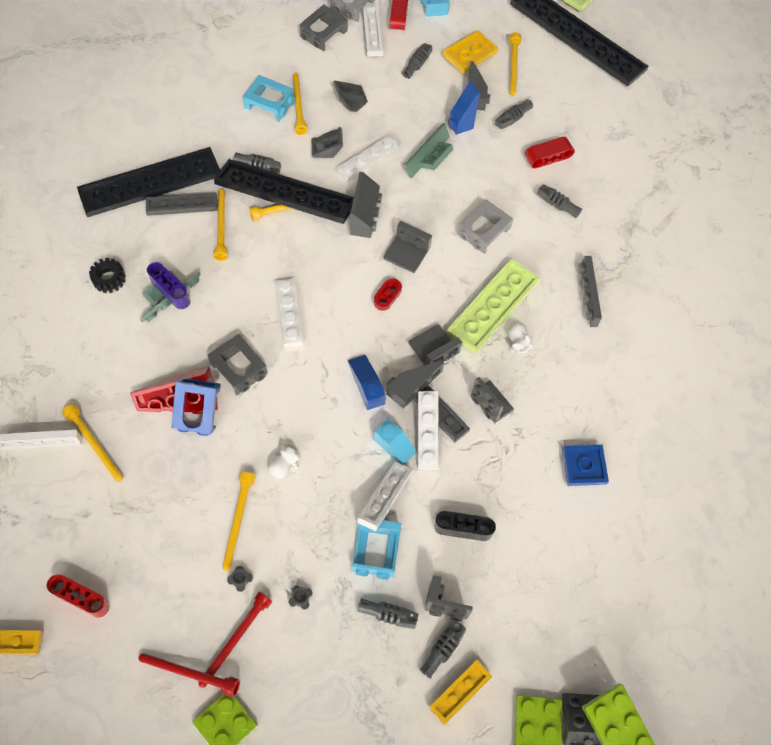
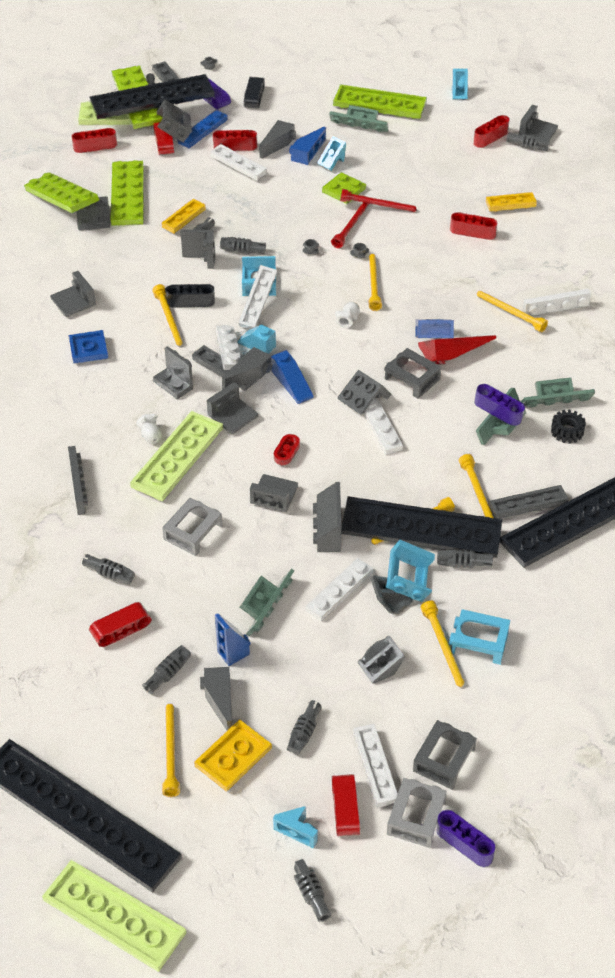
camera: 175 degrees right, 15 degrees down
(100, 312) = (556, 391): none -> sand green bracket
(294, 345) = (361, 392): none -> dark grey bracket
(309, 161) = (416, 557): none -> medium azure panel
(499, 540) = (159, 293): none -> yellow piece
(605, 549) = (75, 298): none -> dark grey bracket

